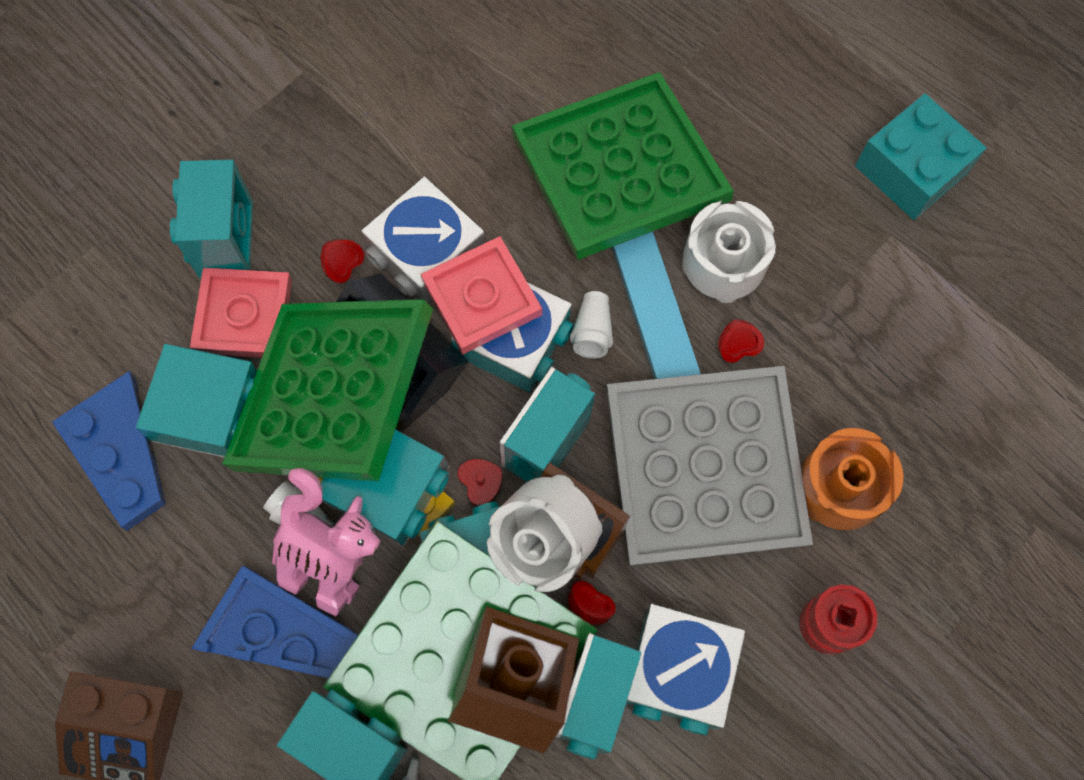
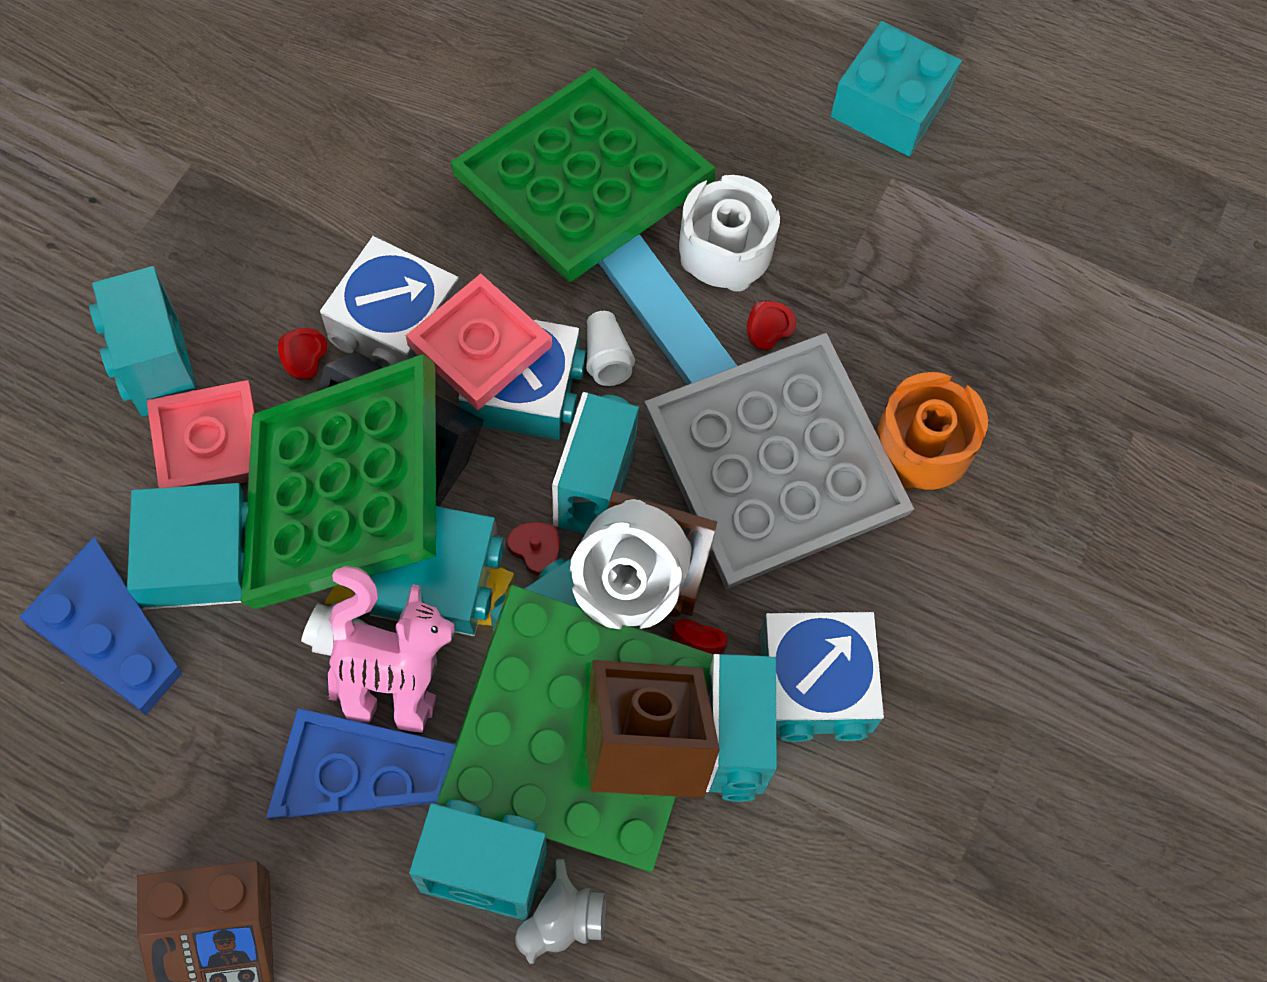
camera: 20 degrees left, 5 degrees down
(838, 619) = (965, 576): red wheel -> none

